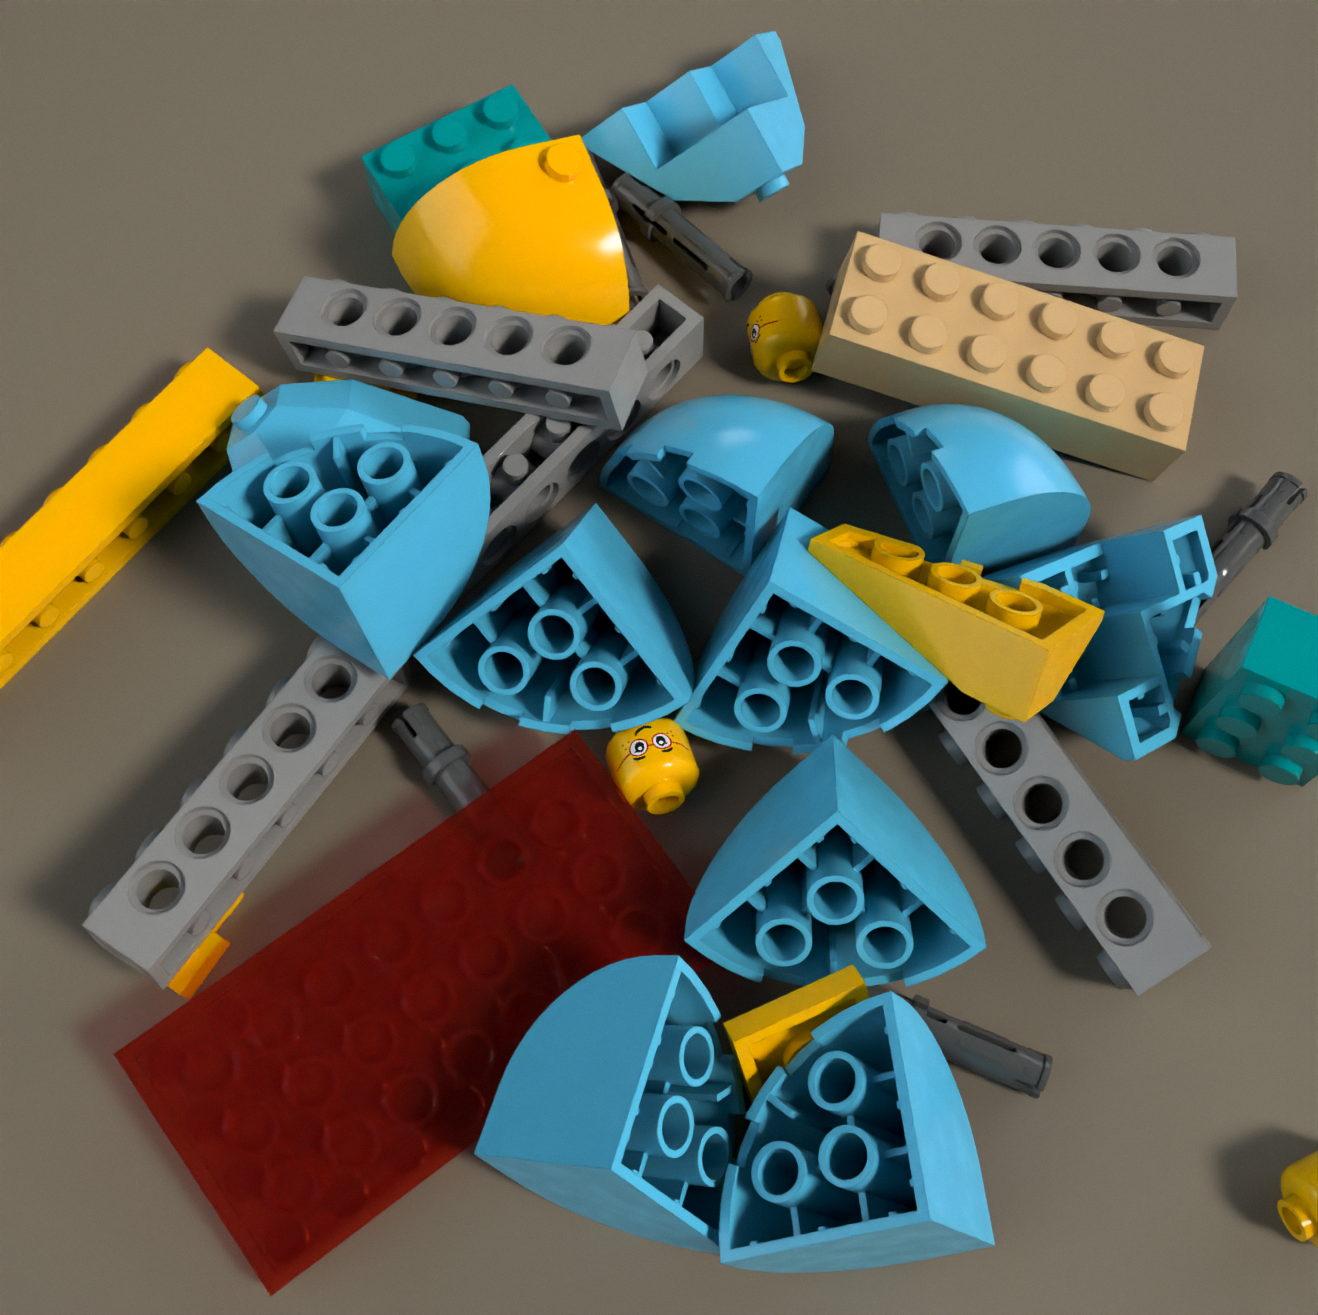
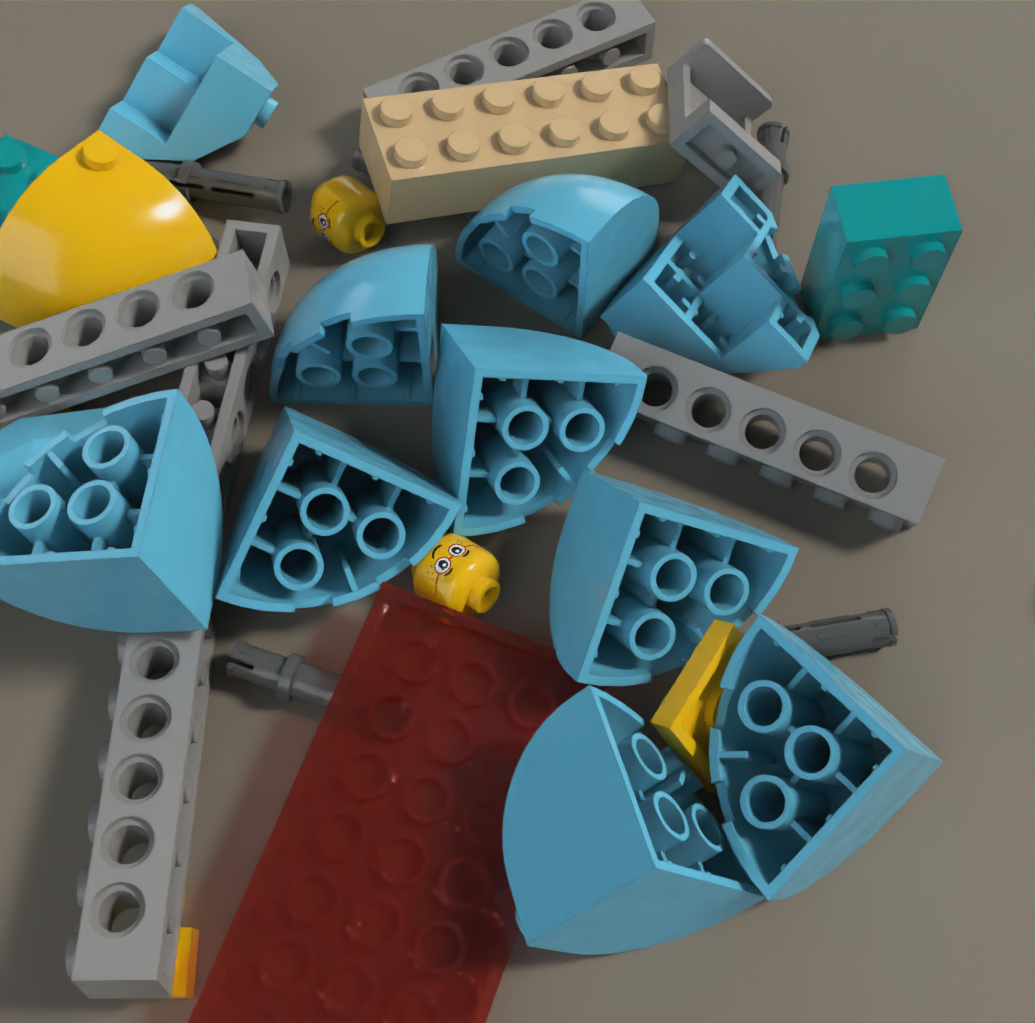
camera: 35 degrees left, 5 degrees down
(982, 635) = (657, 331): yellow wedge -> none
(1224, 441) = (713, 115): none -> light grey panel

